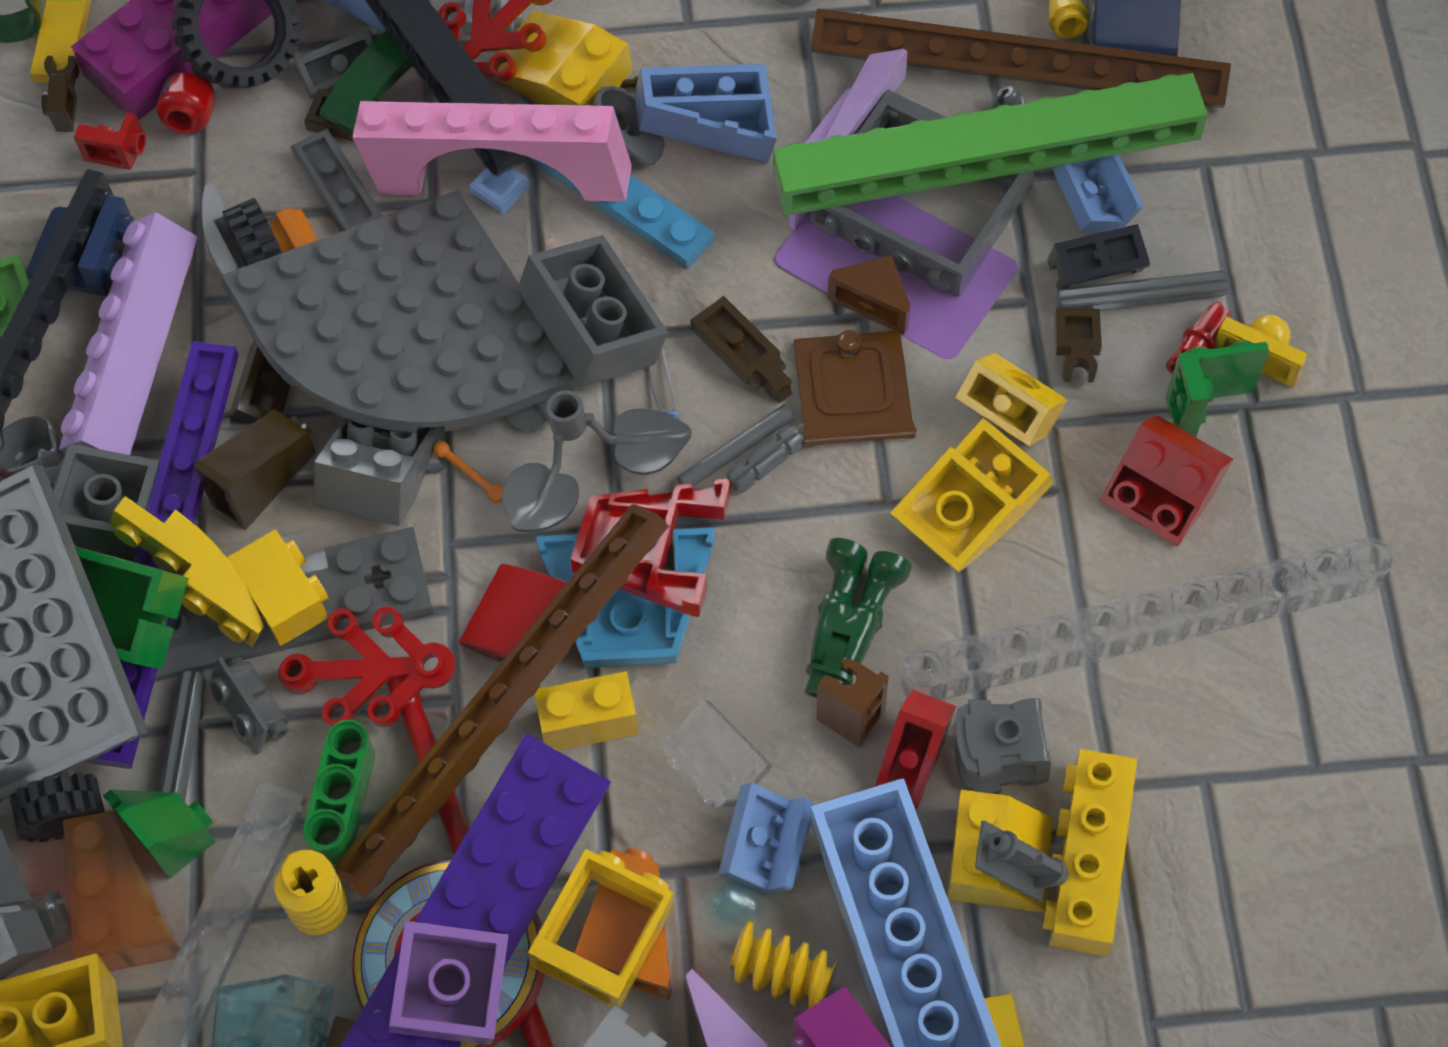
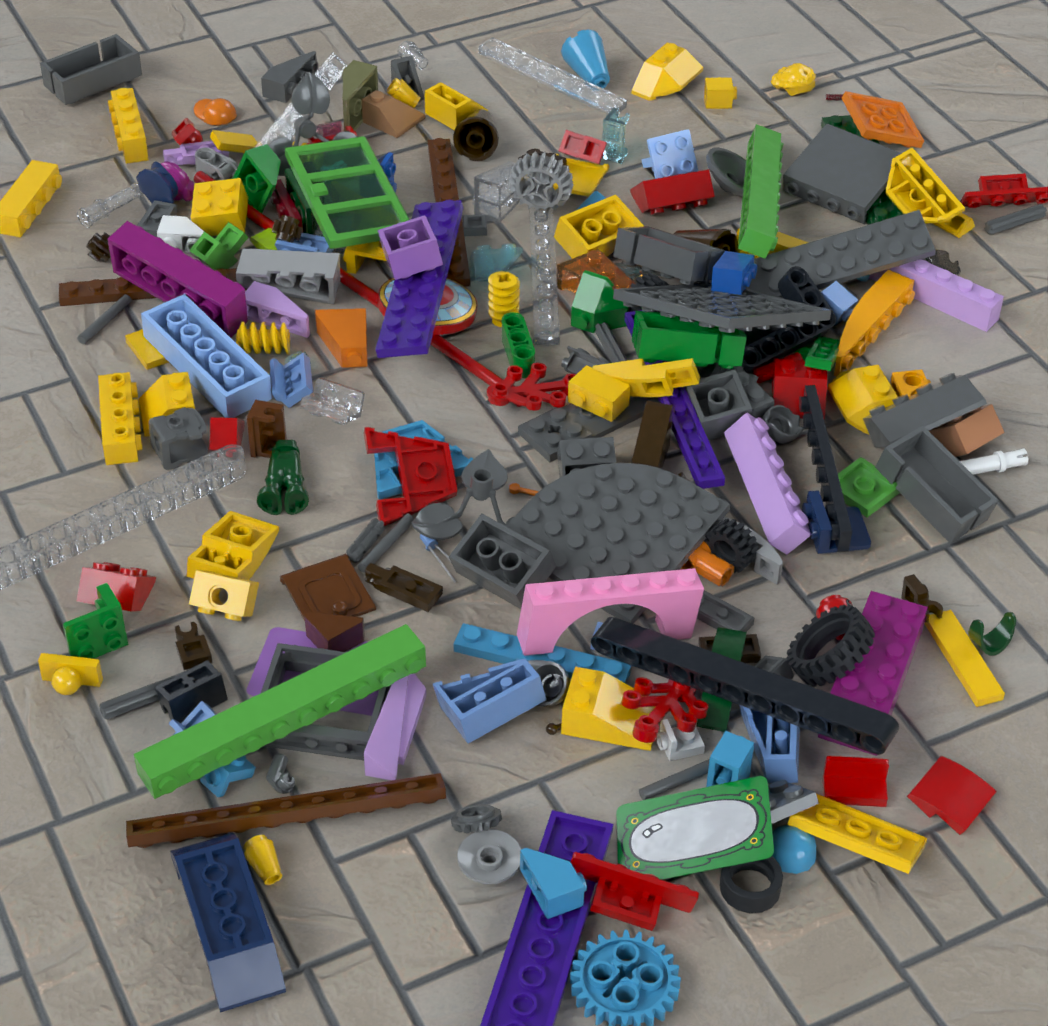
camera: 155 degrees right, 20 degrees down
(112, 147) = (863, 581): red bracket -> none
(499, 700) = (448, 380): reddish brown plate -> none
(509, 610) = (467, 429): red slope -> none
(579, 972) = (343, 290): yellow window -> none
(587, 711) = (408, 401): yellow brick -> none
(1017, 863) = (161, 373): dark grey hinge -> none
(1202, 333) = (112, 669): red axle -> none

